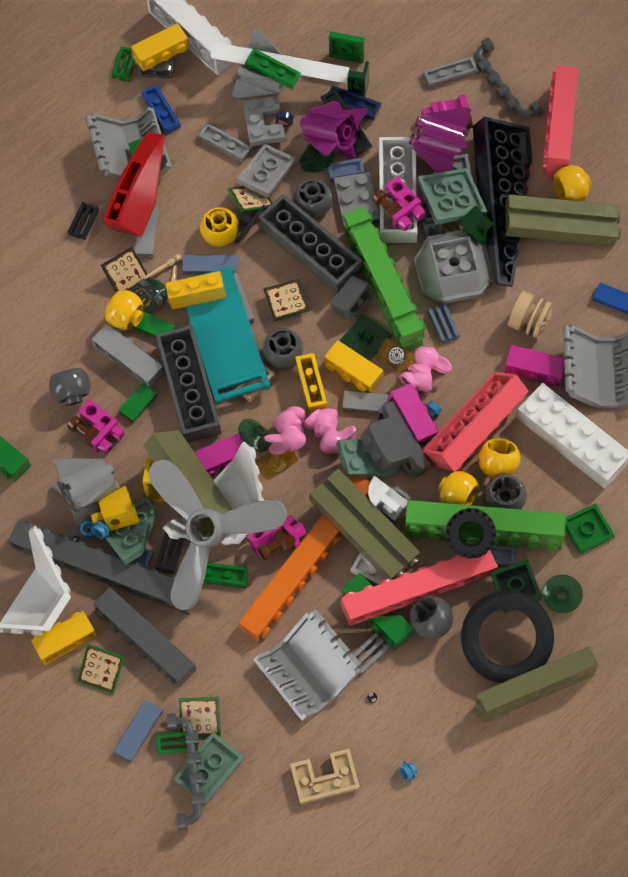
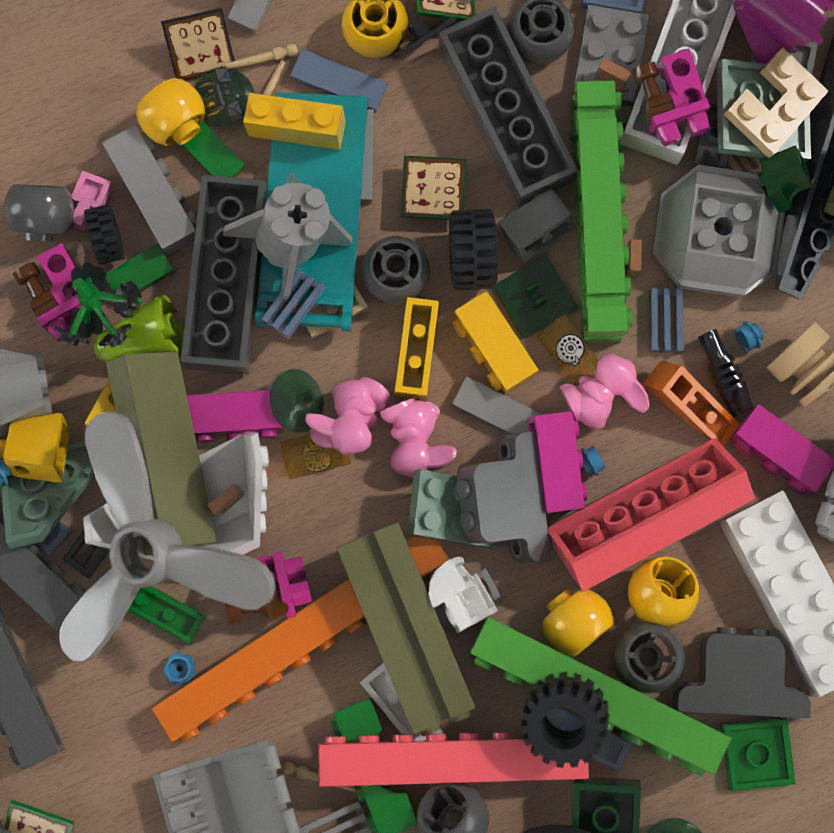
camera: 15 degrees right, 15 degrees up
(95, 371) = (89, 193): none -> bright pink plate
(111, 386) = (104, 234): none -> black tyre
(118, 413) = (89, 317): none -> black plant
(155, 422) = (151, 331): none -> lime cone
(218, 340) = (291, 228): none -> light grey brick
(236, 370) = (302, 312): none -> sand blue tile
(237, 496) = (226, 499): none -> nougat tile
(244, 596) = (171, 665): none -> dark azure plate
(321, 320) = (473, 249): none -> black tyre
(359, 203) = (613, 72): none -> nougat tile
(413, 296) = (635, 258): none -> nougat tile
(459, 200) = (774, 126): none -> tan plate
(472, 358) = (690, 401): none -> orange slope
(488, 338) = (732, 388): none -> black hinge
(492, 315) = (749, 335): none -> dark azure plate
(563, 489) = (742, 678): none -> dark grey brick

